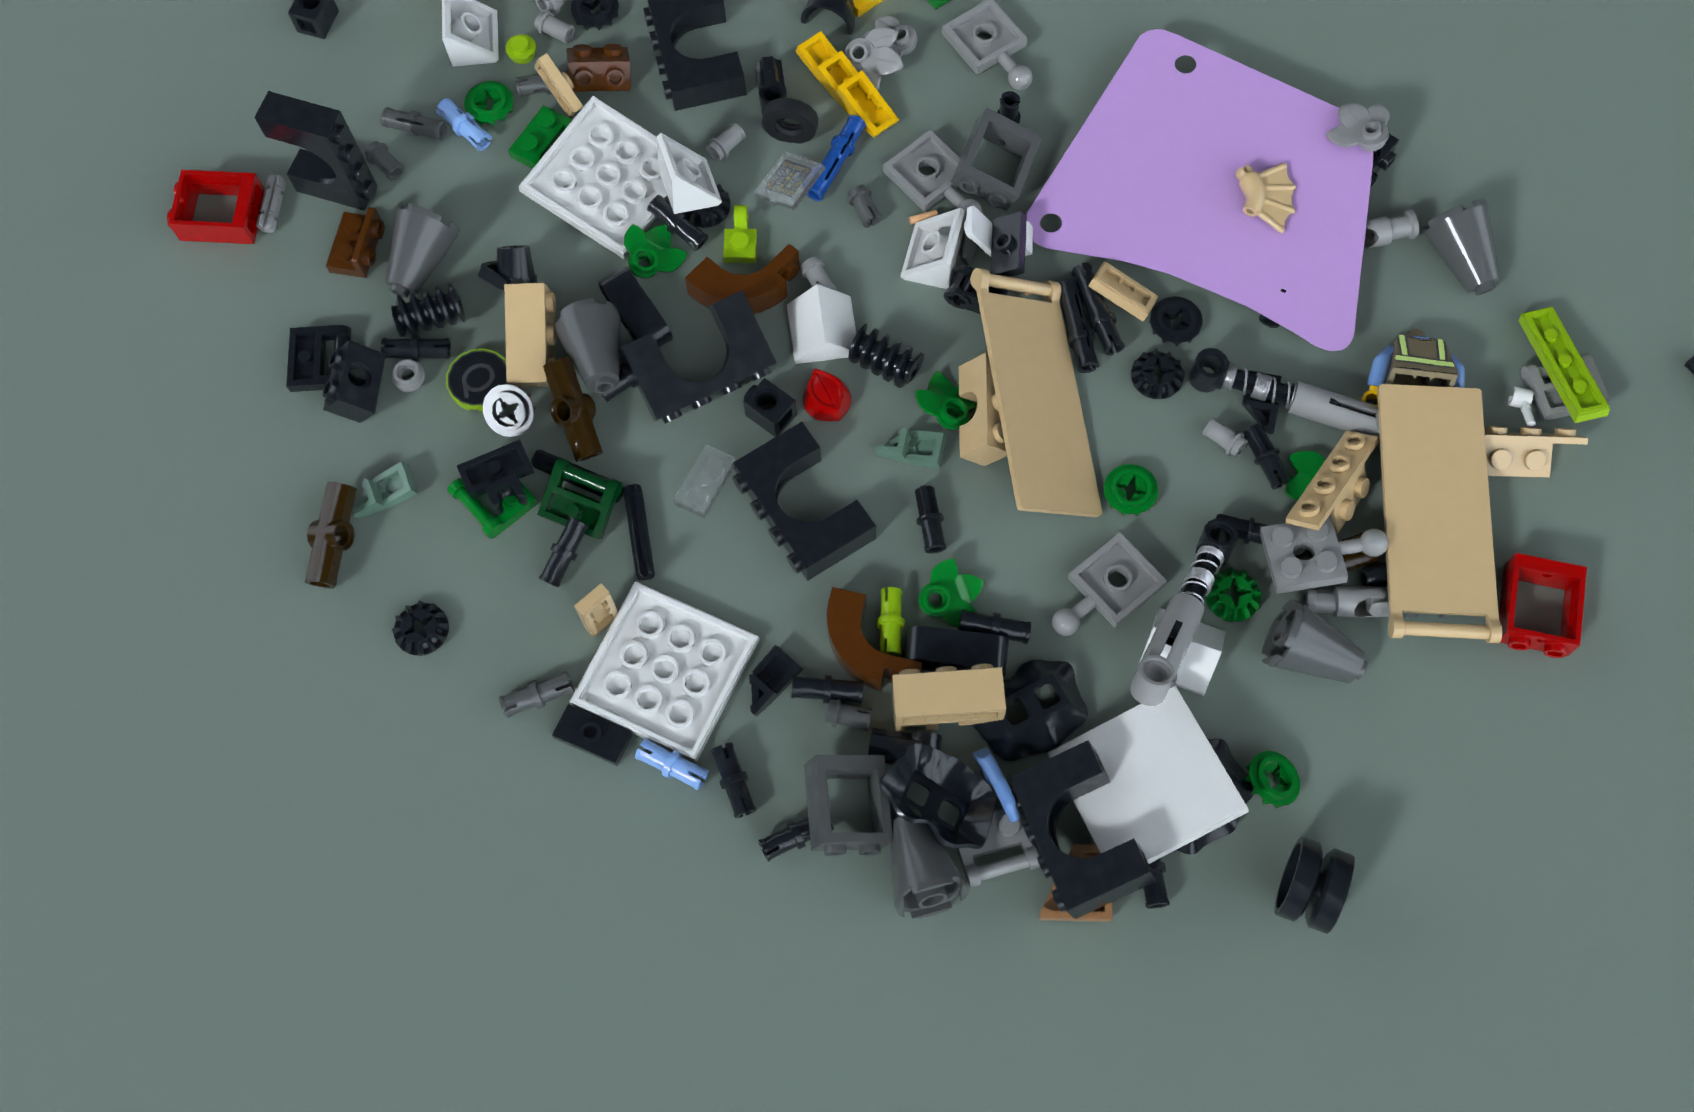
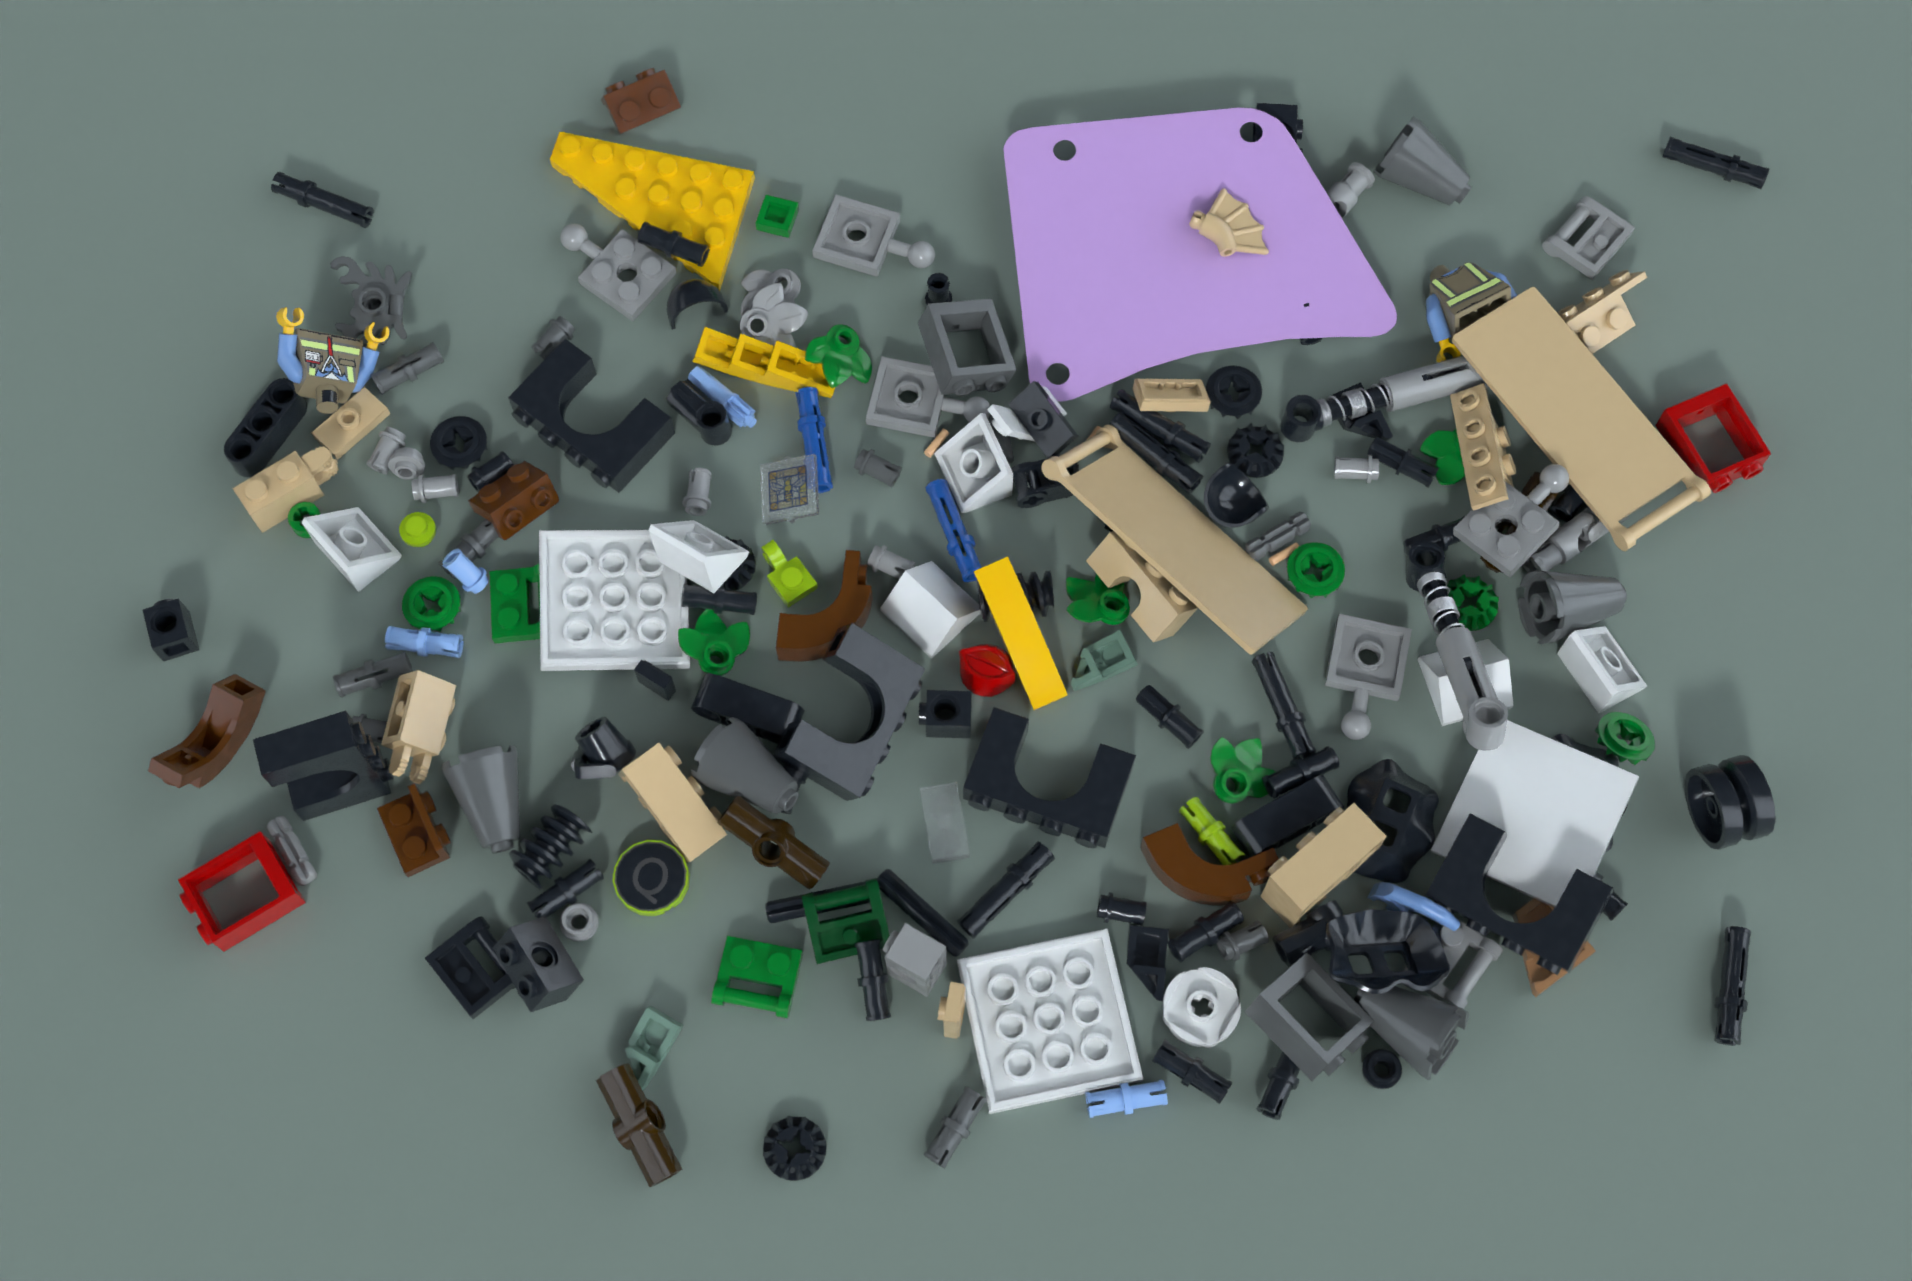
camera: 40 degrees left, 0 degrees up
(305, 81) = (216, 738): none -> reddish brown arch
(413, 171) = (418, 722): none -> tan hinge
(494, 406) = (715, 900): gear -> none
(497, 474) = (756, 953): black plate -> none
(525, 93) = (472, 577): none -> light blue pin
(559, 85) = (496, 542): tan plate -> none
(590, 248) = (655, 679): none -> black tile
(592, 734) = (1033, 1126): black plate -> none
(598, 38) = (490, 471): none -> black pin
(599, 555) = (914, 959): none -> light grey brick
(715, 556) = (1018, 877): none -> black pin
(760, 732) = (1223, 1001): none -> white plate
(779, 629) = (1121, 909): none -> black pin
(794, 79) = (736, 408): none -> light blue piece
(794, 110) = (747, 432): black tyre -> none
(863, 382) = (1020, 633): none -> yellow slope
(872, 872) = (1386, 1058): none -> black plate
(879, 295) = (940, 496): none -> blue pin
(899, 113) = (840, 359): none -> green plate
(1018, 584) = (1289, 719): none -> black pin
(1109, 393) = (1233, 498): none -> black helmet
(1115, 462) = (1283, 554): none -> light nougat piece
(1122, 446) = (1278, 536): none -> dark grey axle
(1192, 1038) = (1732, 989): none -> black pin
(1300, 713) = (1600, 667): none -> white slope
(1361, 127) = (1259, 114): light grey plate -> none
(1522, 399) = (1565, 271): white hand -> none
(1564, 365) = (1576, 219): lime tile -> none

